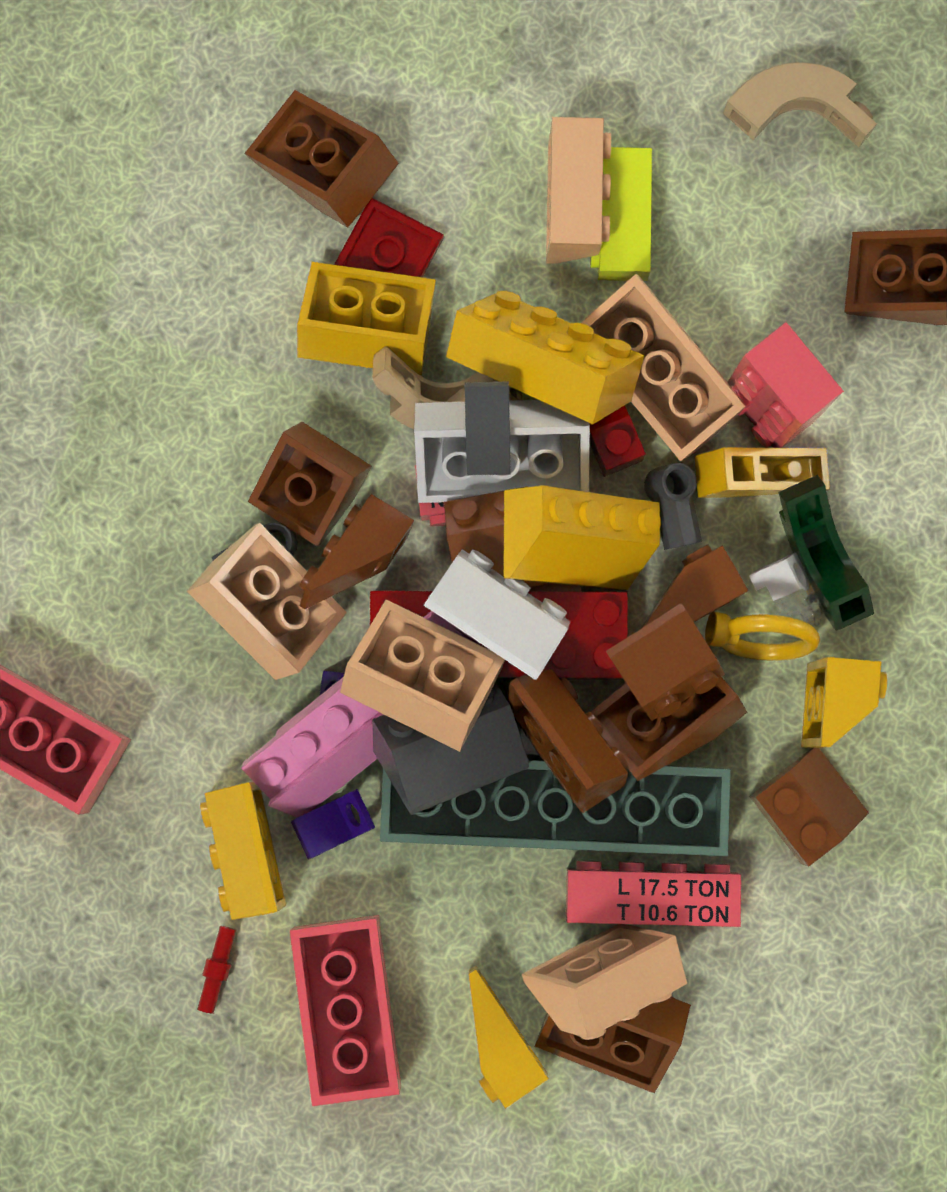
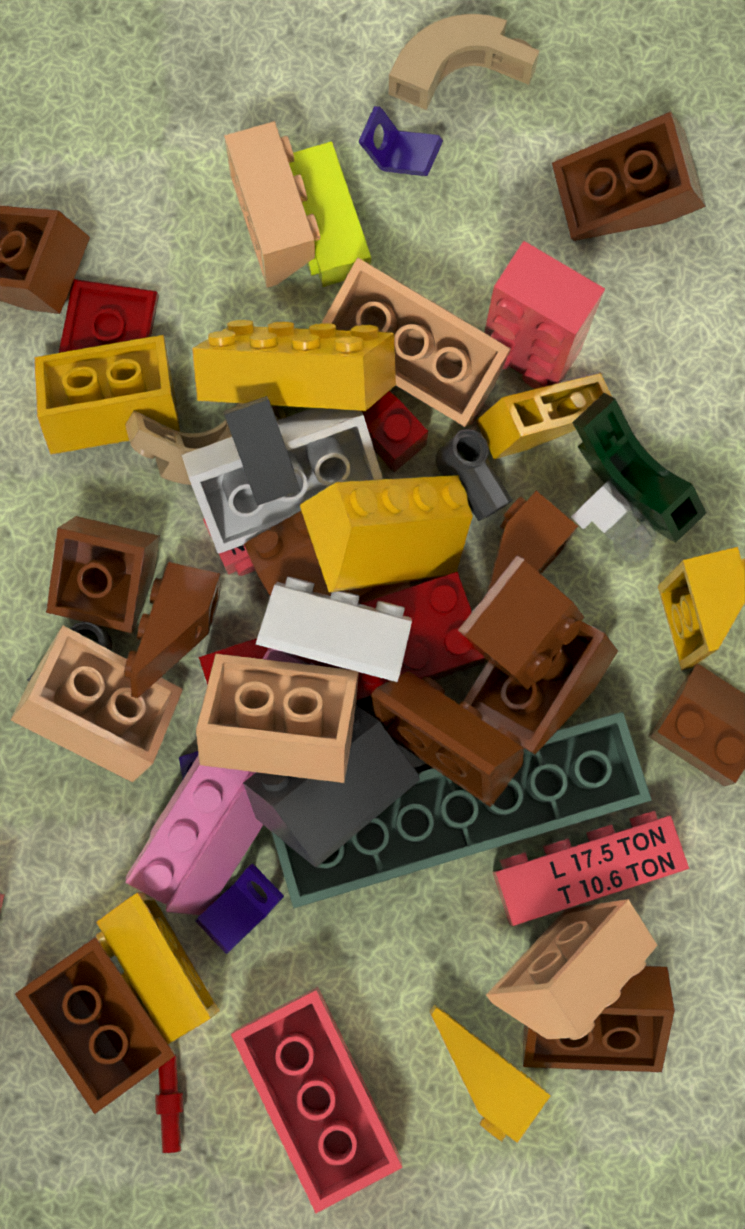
camera: 25 degrees left, 5 degrees down
(175, 881) = (95, 1025): none -> dark orange slope
(714, 173) = (400, 150): none -> dark purple bracket
(725, 633) = (570, 576): yellow piece -> none

